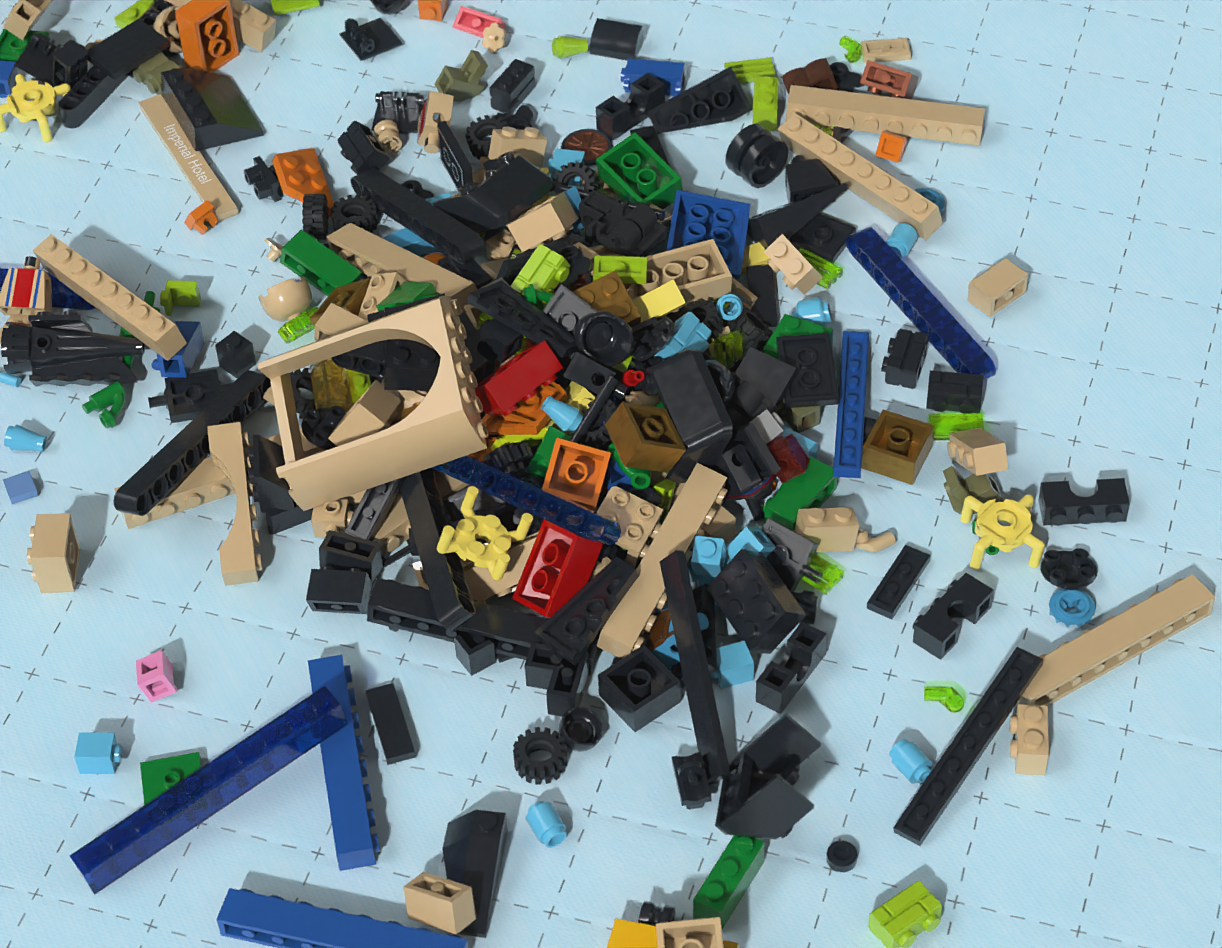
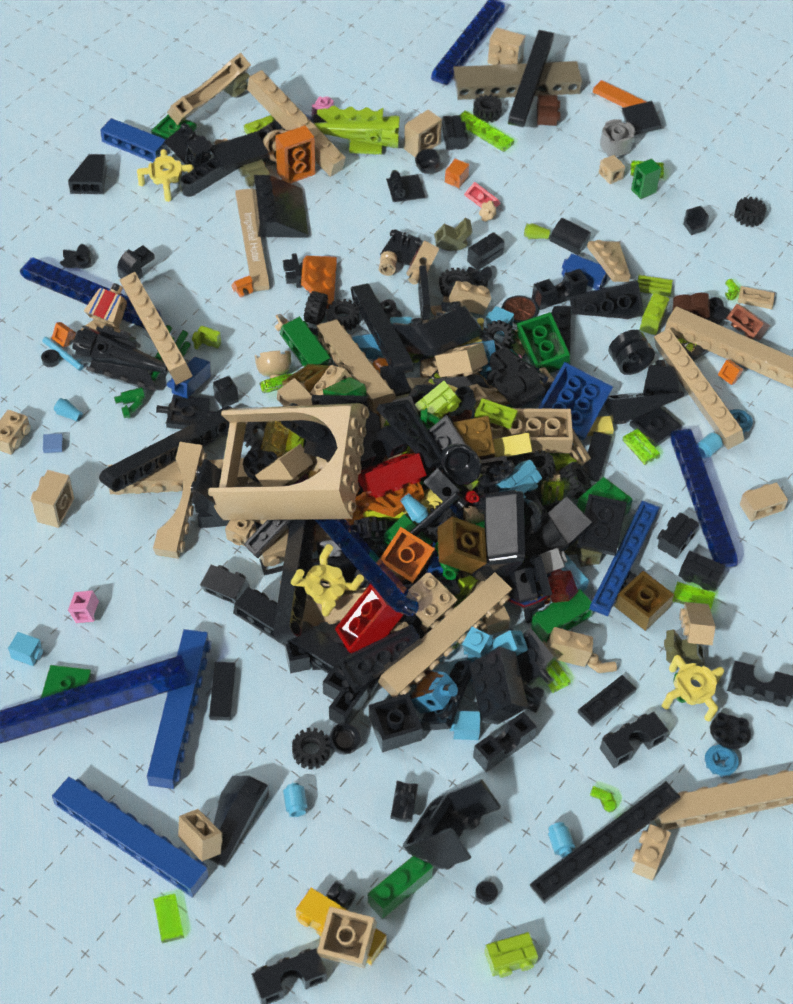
camera: 15 degrees right, 5 degrees up
(37, 226) = (134, 261): none -> black brick
(348, 552) = (241, 560): black brick -> none
(362, 148) = (366, 267): black brick -> none
(681, 51) = (611, 259): none -> tan wing
(694, 666) = (434, 722): black tile -> none
(734, 308) = (563, 465): medium azure cone -> none
(793, 264) = (625, 441): tan brick -> none
(814, 311) = (626, 481): medium azure head -> none

